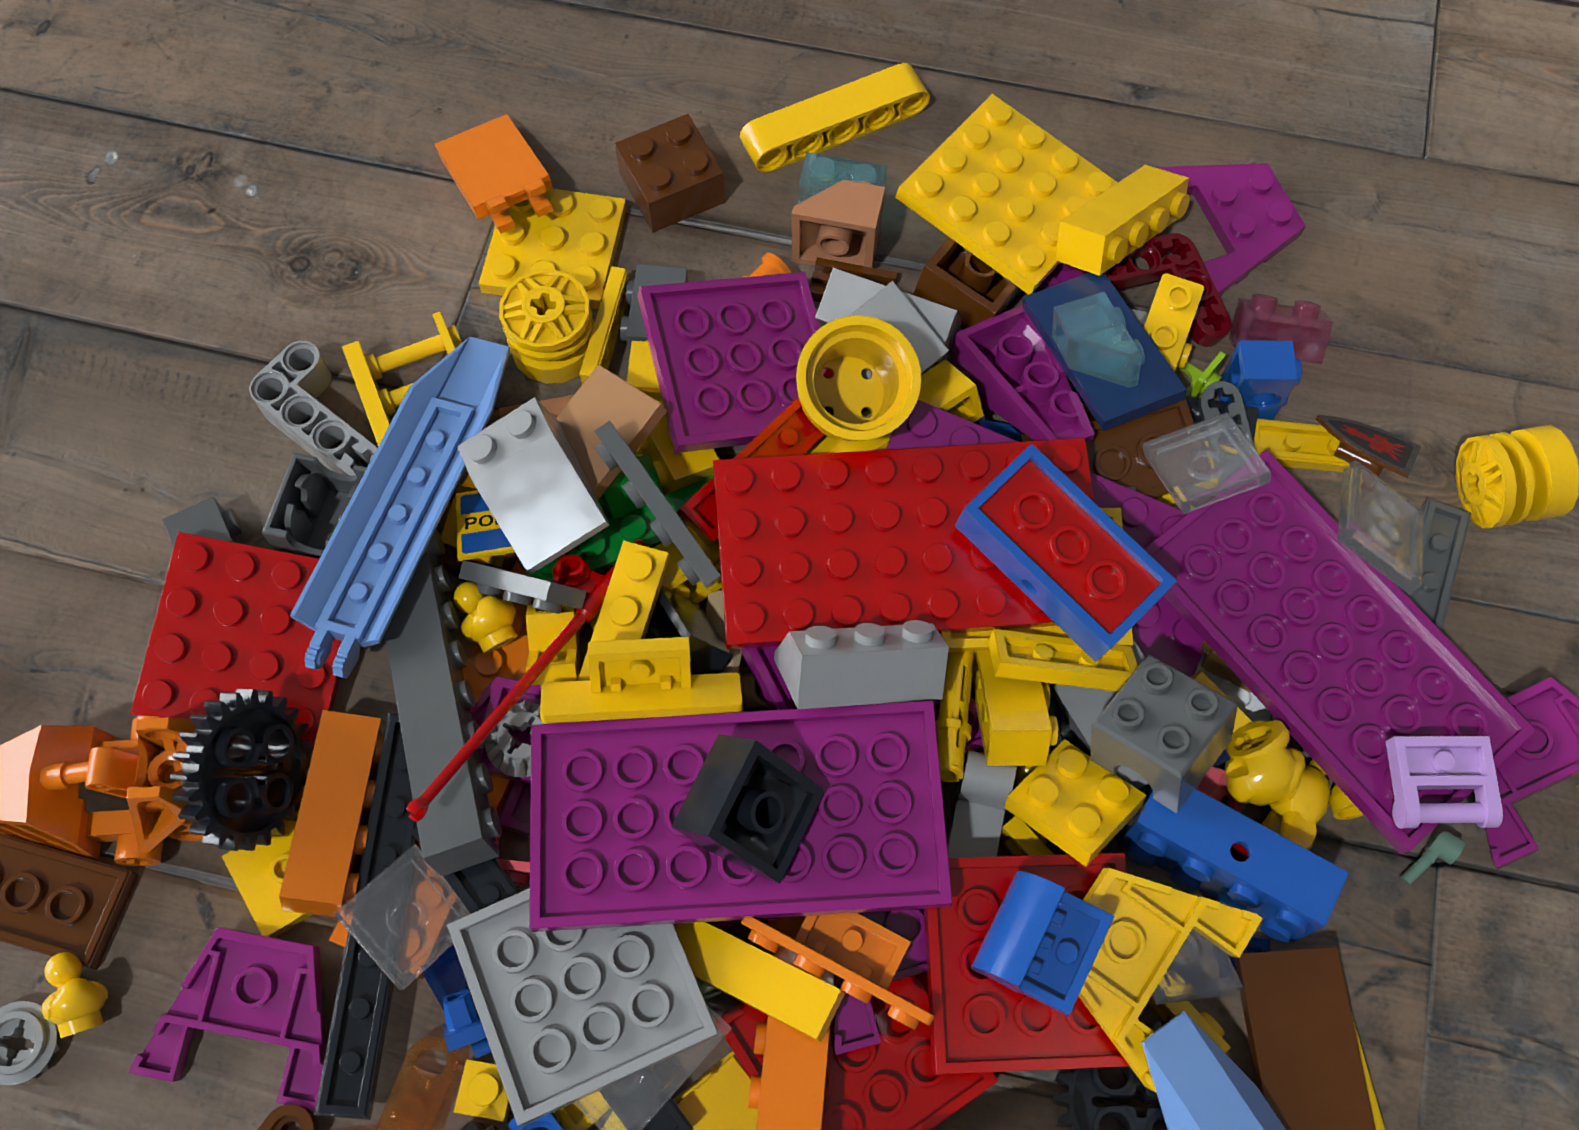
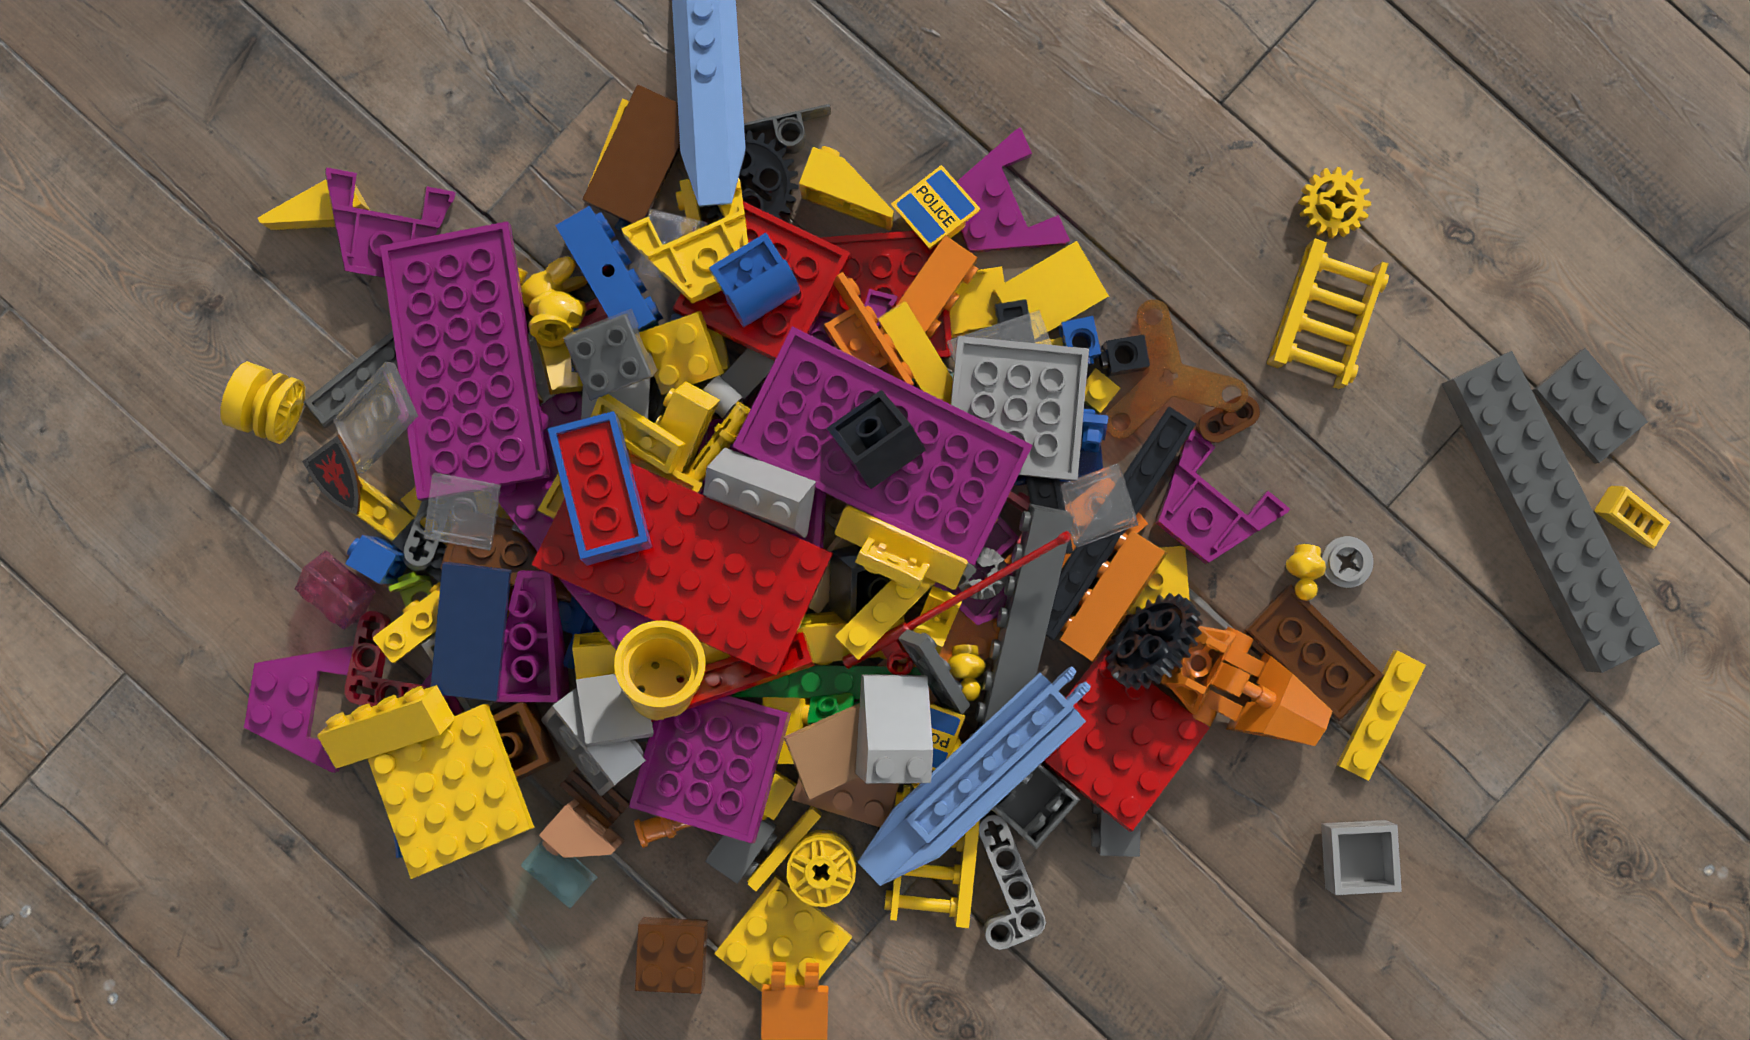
camera: 155 degrees left, 20 degrees up
(644, 491) = (828, 682): dark grey plate -> none
(834, 117) = (526, 940): yellow beam -> none
(1096, 340) = (478, 629): clear light blue slope -> none
(1440, 845) = (476, 218): sand green hand -> none
(1443, 764) = (457, 254): lavender plate -> none

